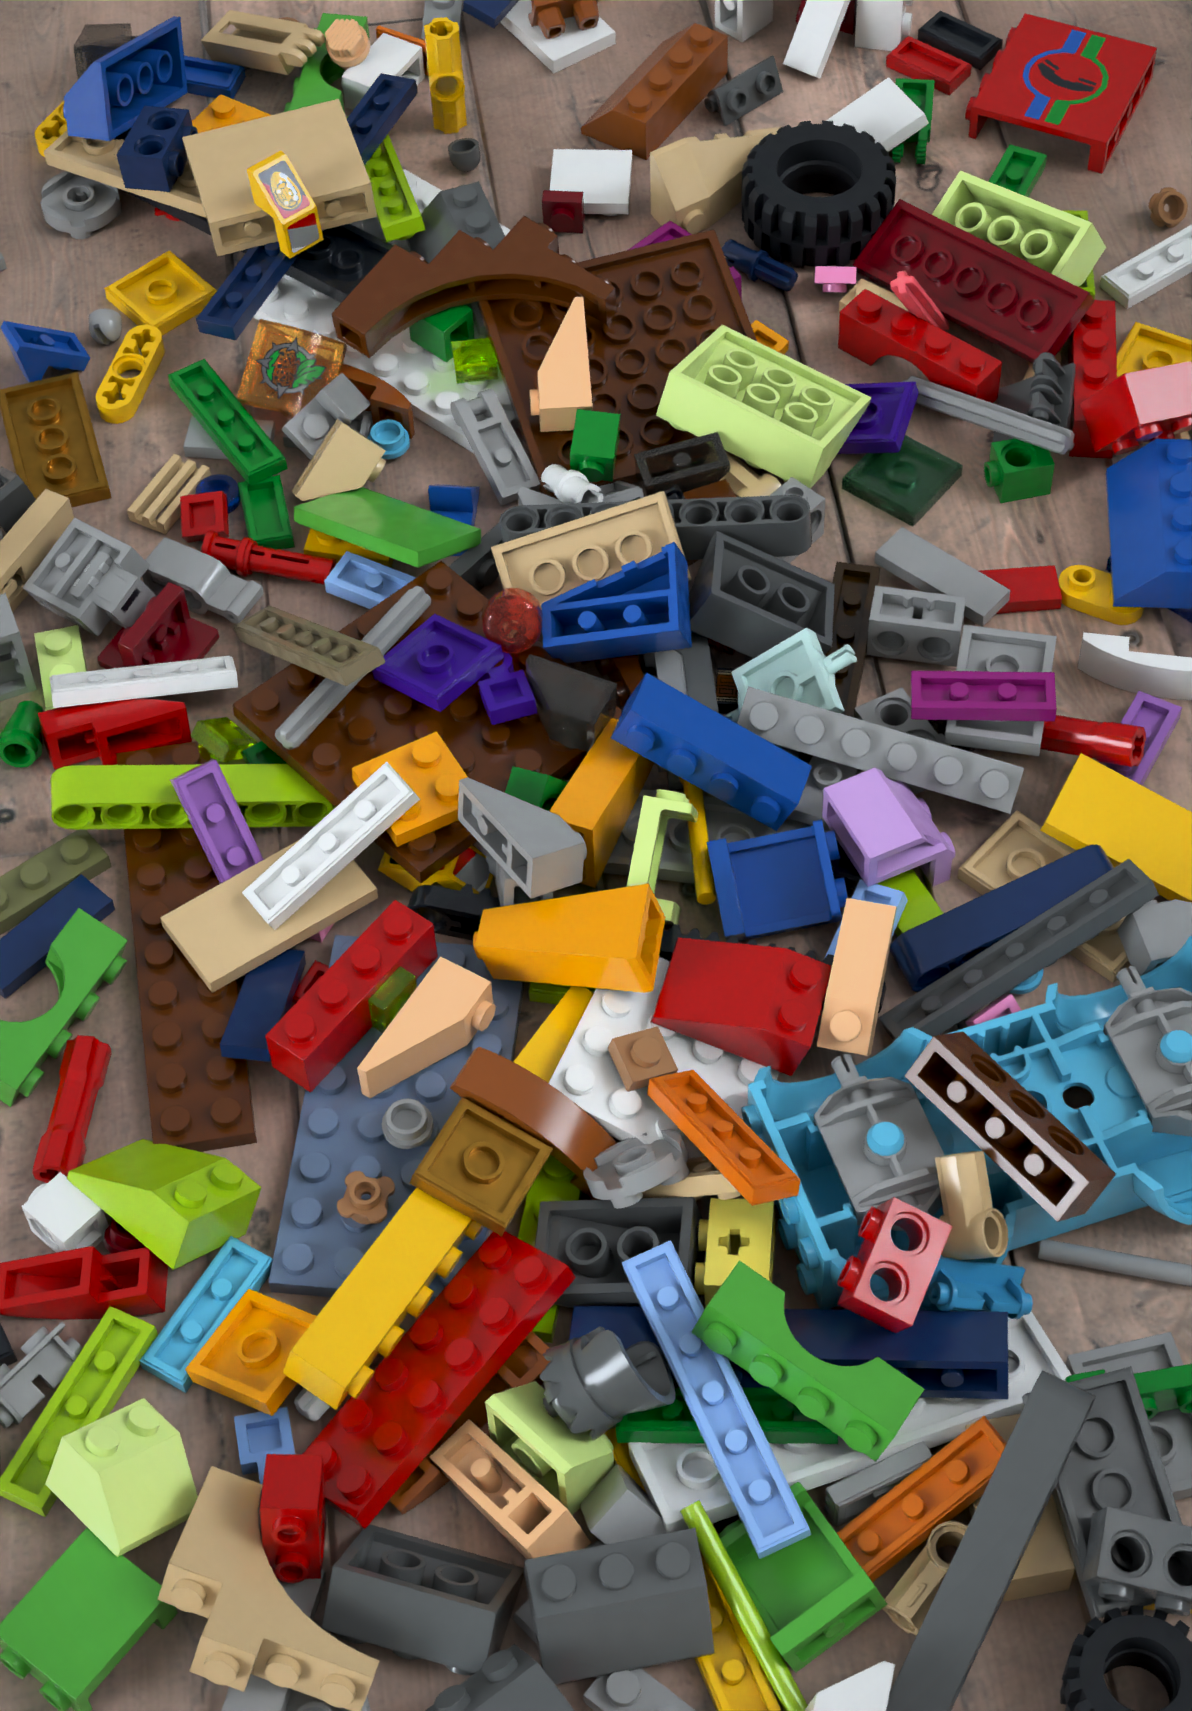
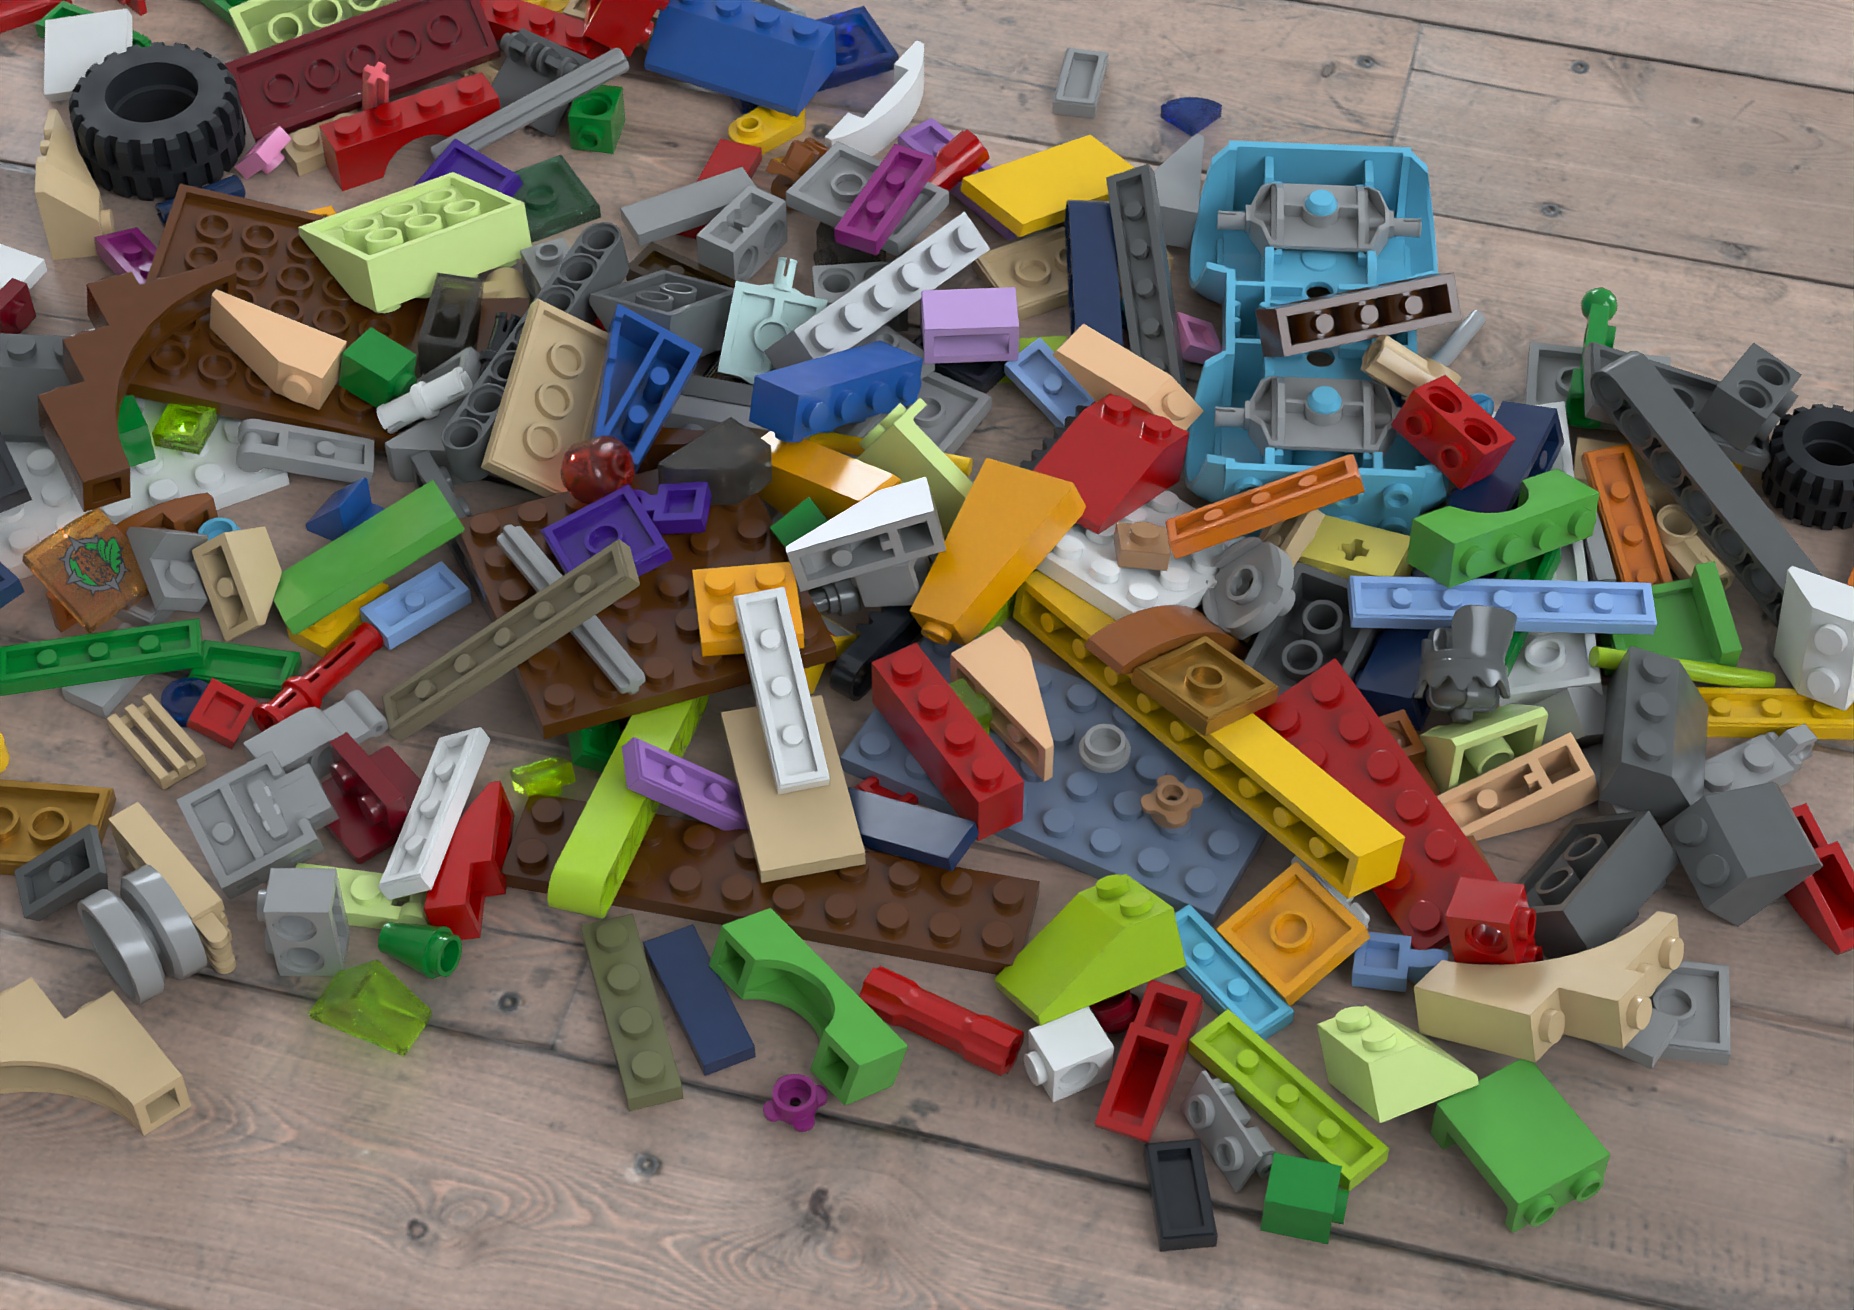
camera: 70 degrees left, 5 degrees down
(777, 882) = (979, 406): blue panel -> none
(1033, 619) = (794, 165): none -> dark orange hips

